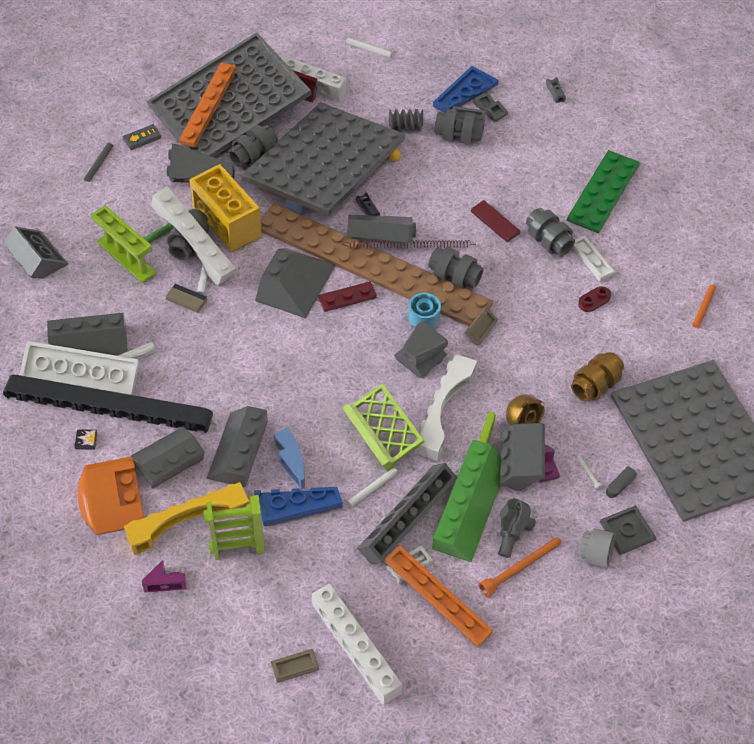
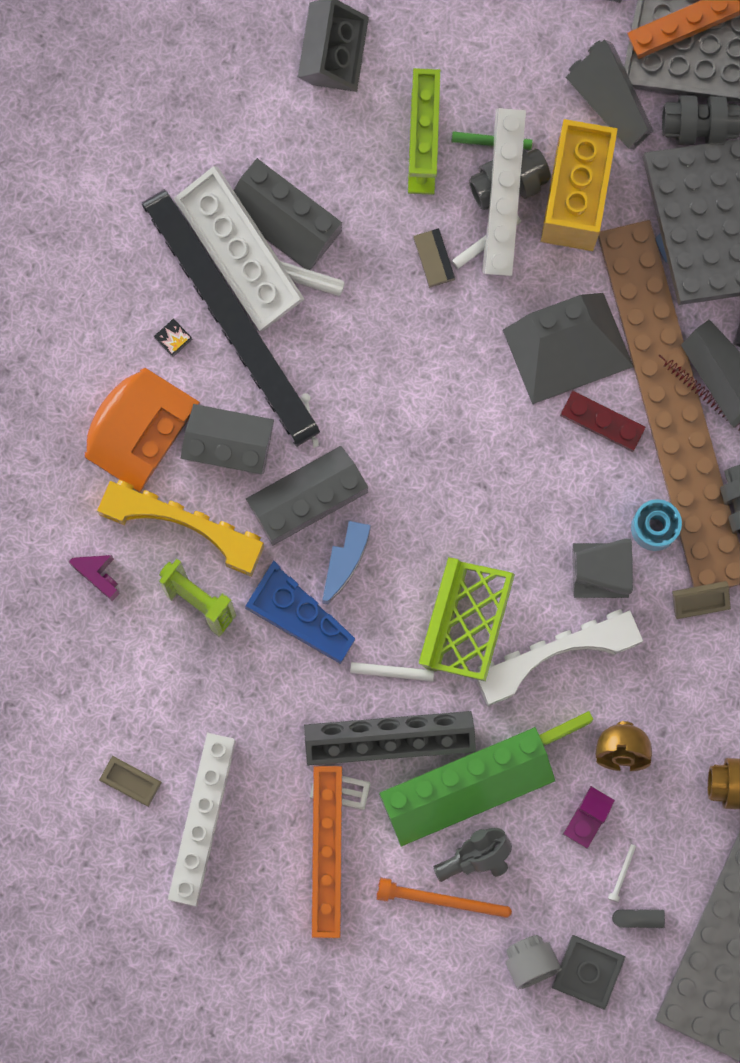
camera: 45 degrees right, 25 degrees up
(522, 455) = (566, 793): dark grey slope -> none

